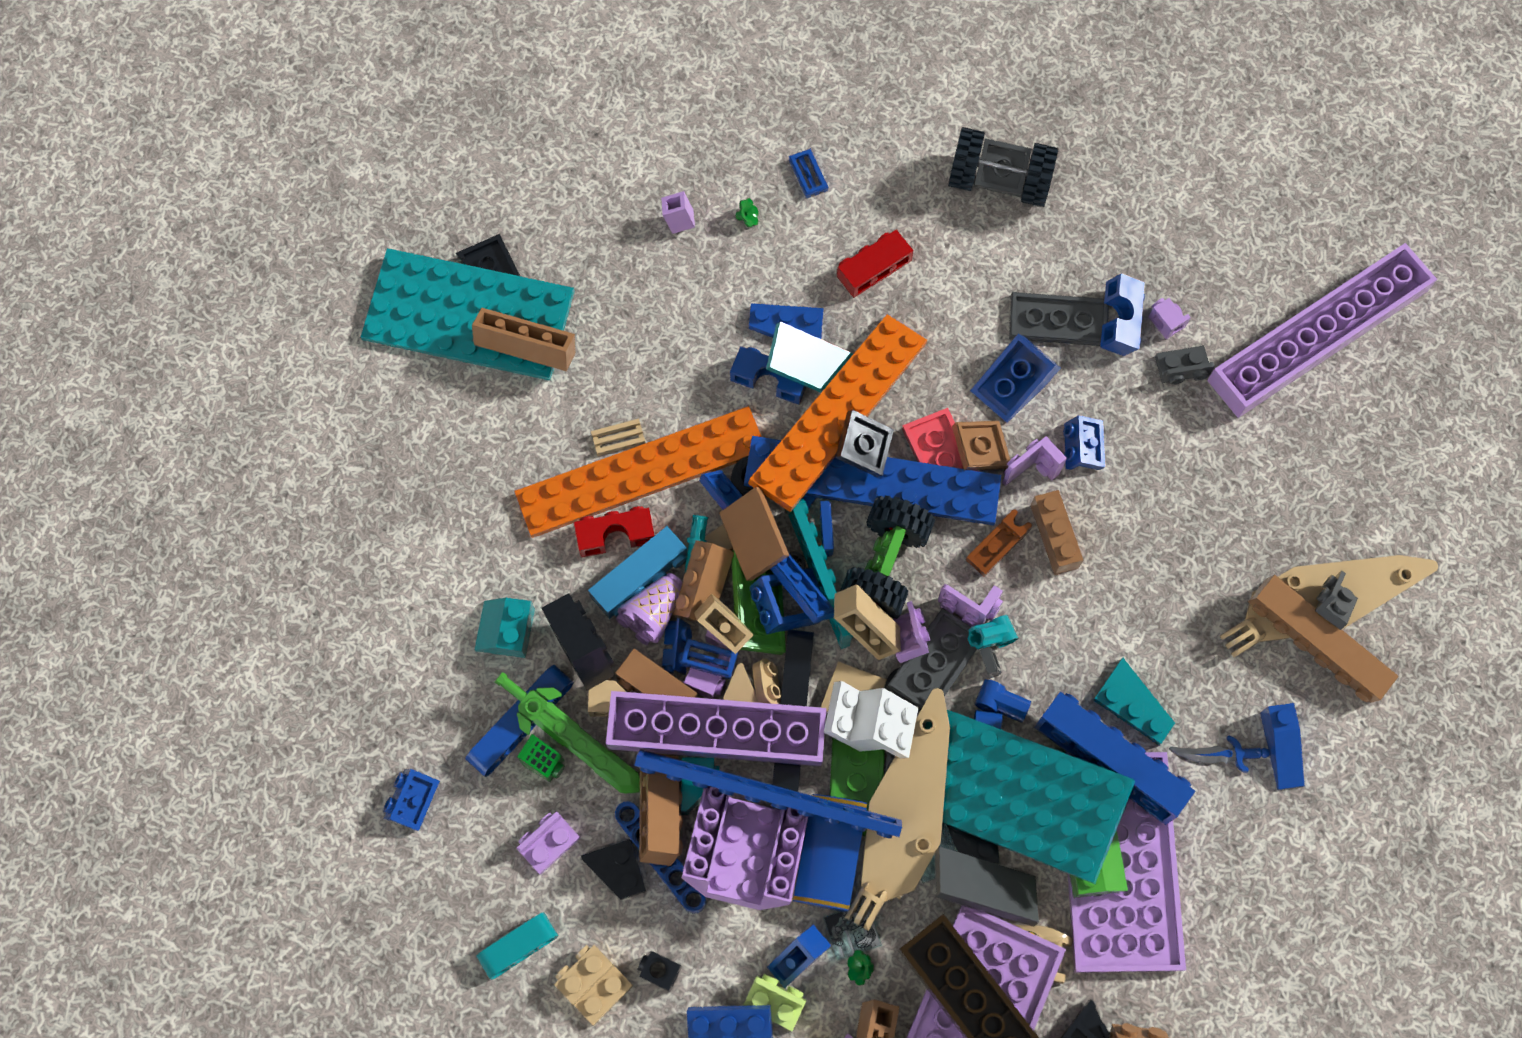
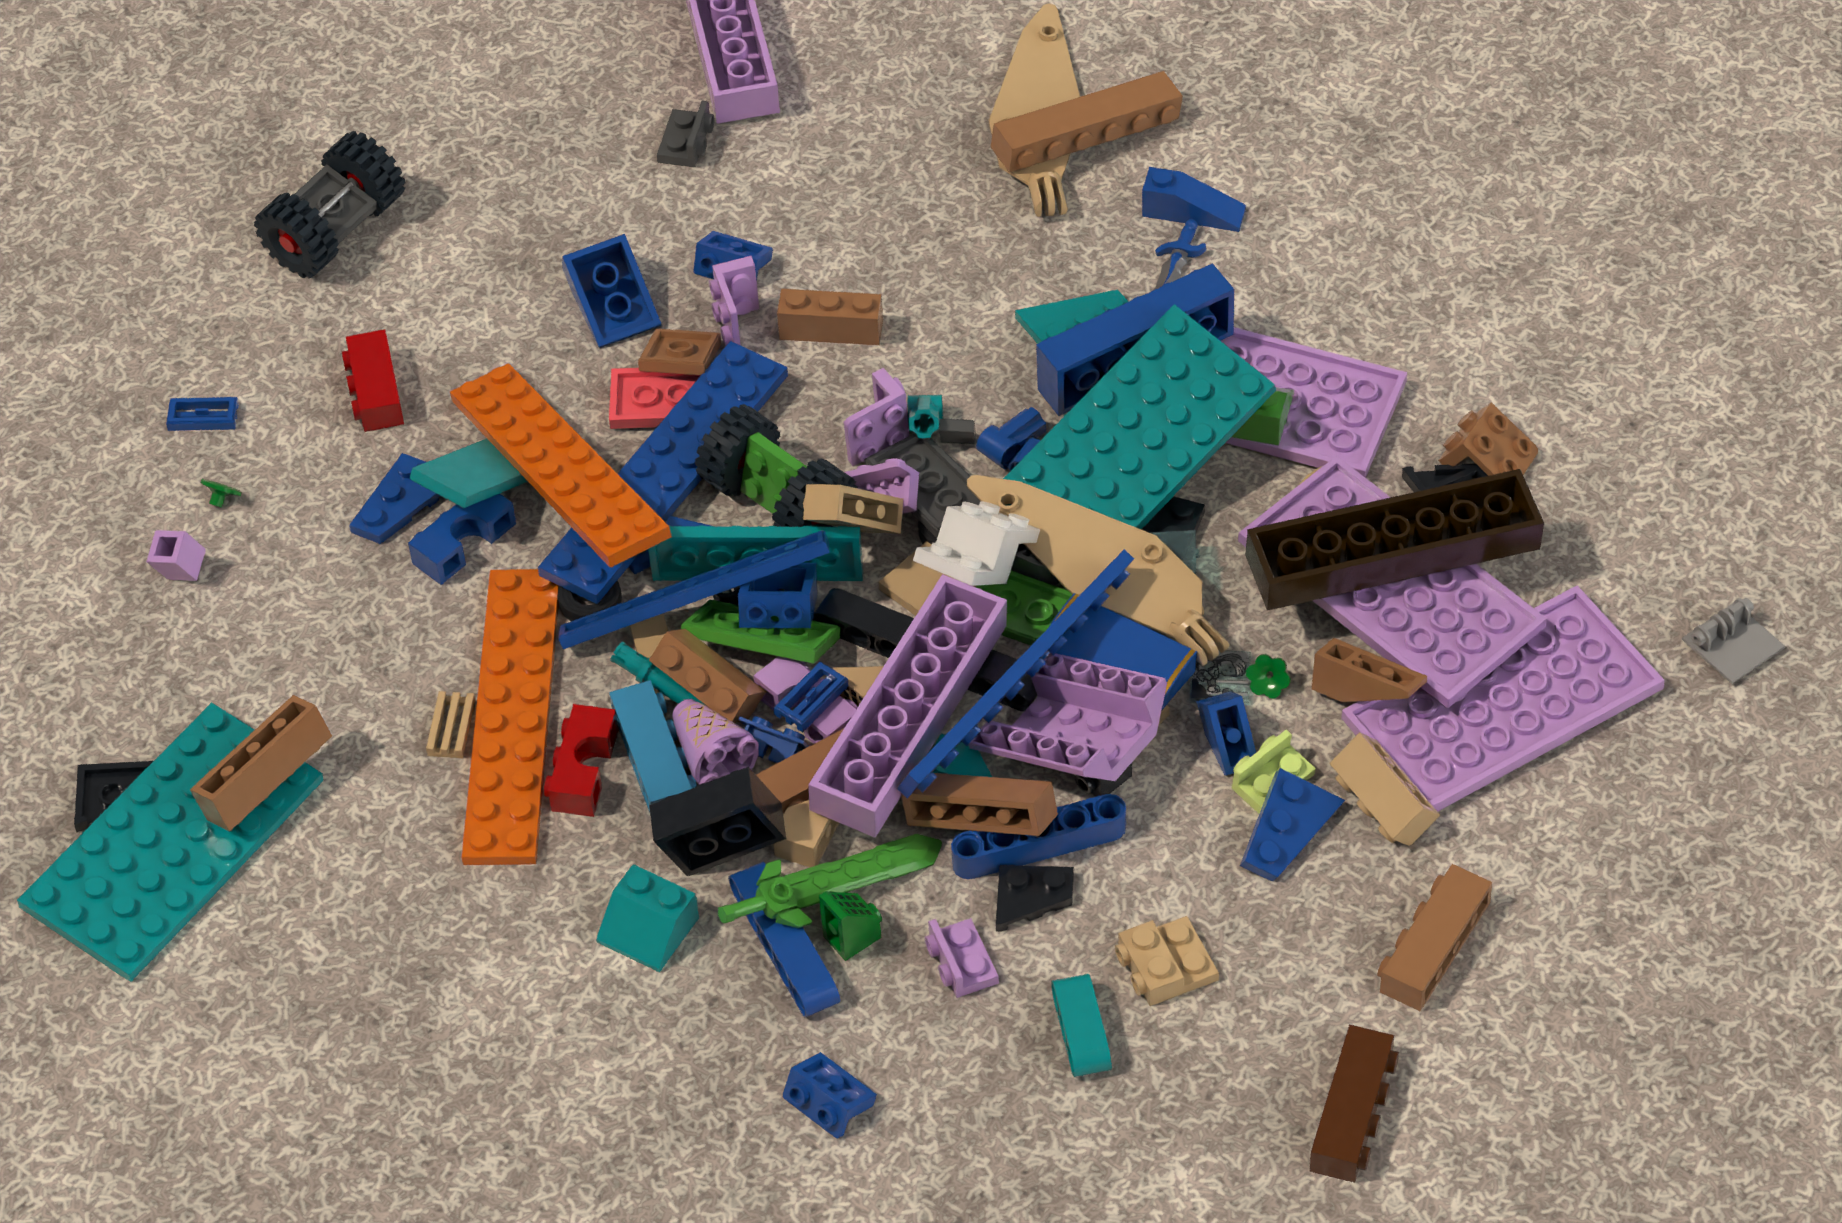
camera: 65 degrees left, 20 degrees down
(670, 976) = (1184, 866): black brick -> none
(723, 623) = (775, 656): tan slope -> none
(754, 534) = (678, 585): medium nougat tile -> none
(766, 682) = (857, 655): tan plate -> none
(864, 443) = (620, 442): plate -> none
(986, 886) = (1229, 510): dark grey tile -> none
(997, 544) = (812, 379): dark orange plate -> none
(1057, 318) = (556, 227): dark grey tile -> none
(1127, 298) = (572, 154): arch -> none
(1168, 317) = (618, 128): lavender brick -> none
(1335, 601) = (1048, 89): dark grey bracket -> none

